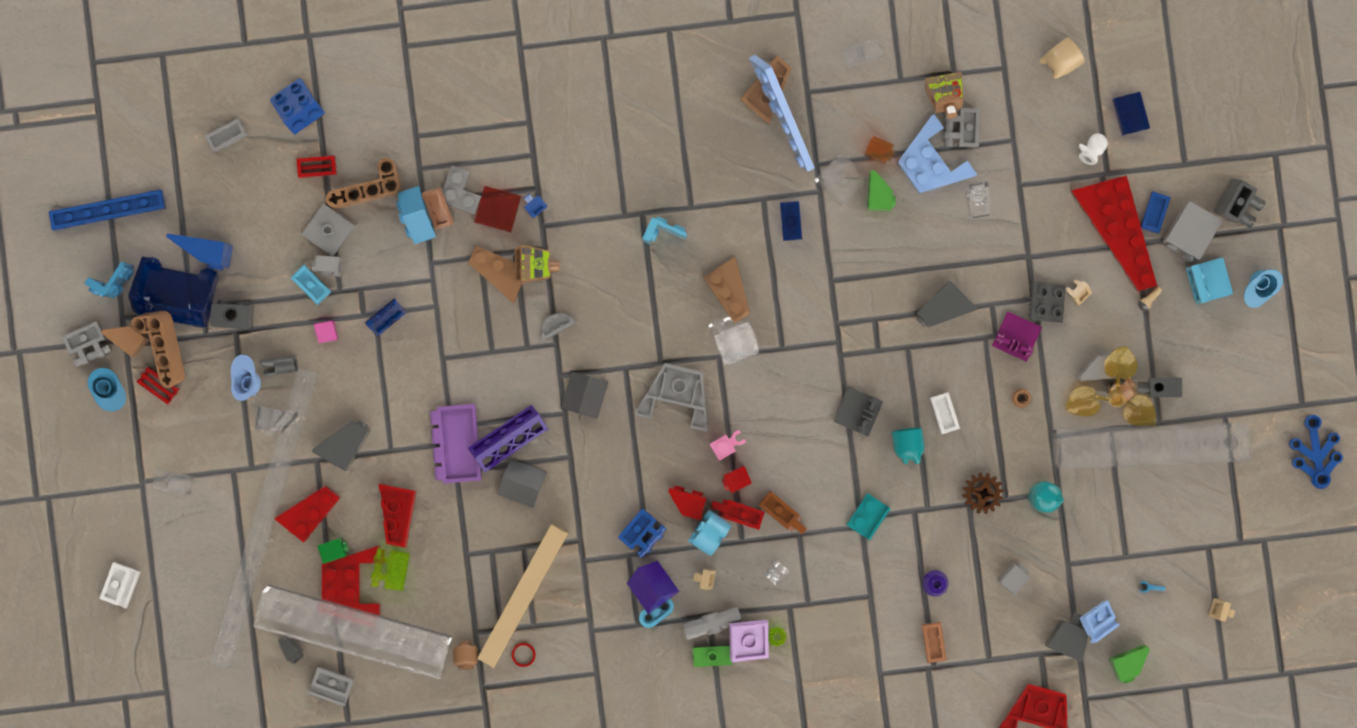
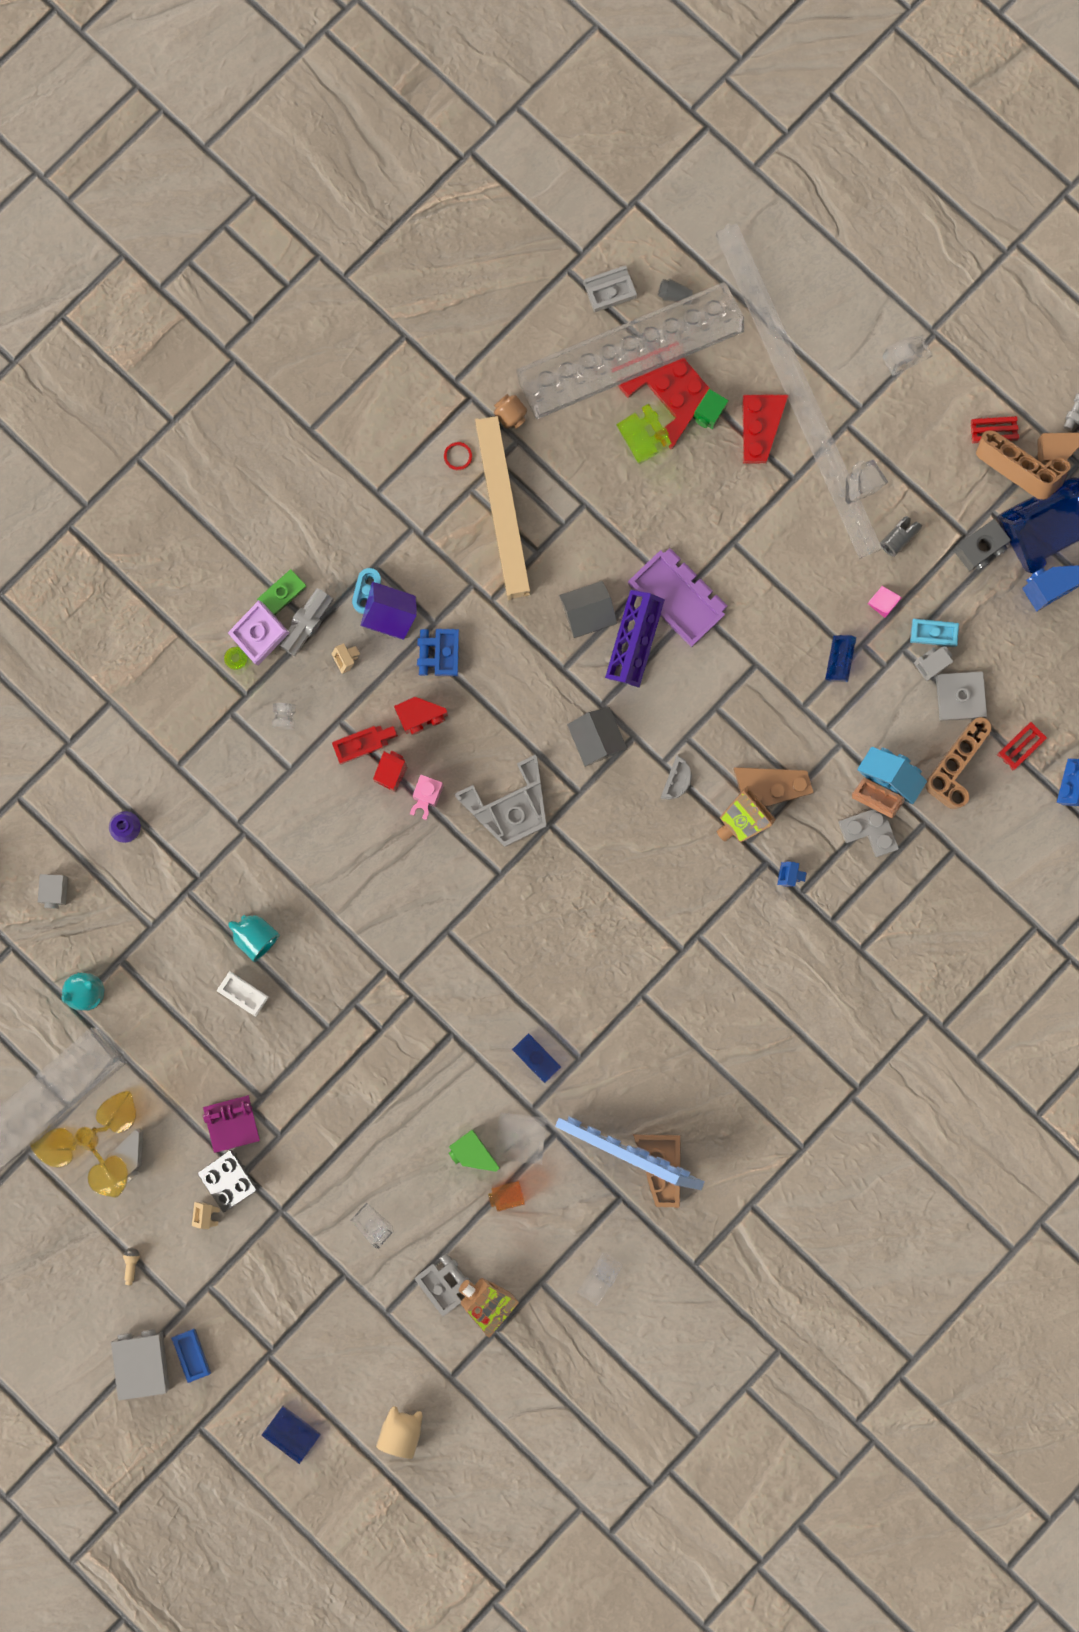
camera: 140 degrees right, 5 degrees down
(106, 389) = (1038, 386): dark azure piece -> none
(120, 585) = (876, 226): white plate -> none
(243, 378) = (922, 497): light blue piece -> none
(343, 445) = (780, 510): dark grey slope -> none
(397, 513) = (680, 491): red wing -> none
(497, 209) = (821, 843): clear red tile -> none
(652, 231) = (659, 938): medium azure bracket -> none
(709, 533) = (375, 701): medium azure brick -> none
(729, 290) = (543, 944): medium nougat wing -> none
(734, 340) = (500, 903): clear bracket -> none
(782, 512) = (322, 775): dark orange hinge -> none
(858, 411) = (326, 929): dark grey hinge -> none
(868, 516) = (238, 838): teal plate -> none
(925, 166) = (452, 1218): light blue wing -> none
(933, 642) = (82, 770): nougat plate -> none
(944, 305) = (324, 1095): dark grey slope -> none
(980, 502) = (150, 956): reddish brown gear -> none
(1027, 398) = (173, 1068): medium nougat plate -> none
(1096, 146) = (300, 1372): white animal -> none
(1117, 222) = (221, 1315): red wing -> none
(1126, 386) = (86, 1158): medium nougat head -> none
(1170, 387) = (41, 1192): dark grey torso -> none
(1209, 281) = (85, 1330): medium azure bracket -> none
(1236, 201) = (119, 1431): dark grey brick -> none
(1262, 286) = (28, 1366): dark azure piece -> none

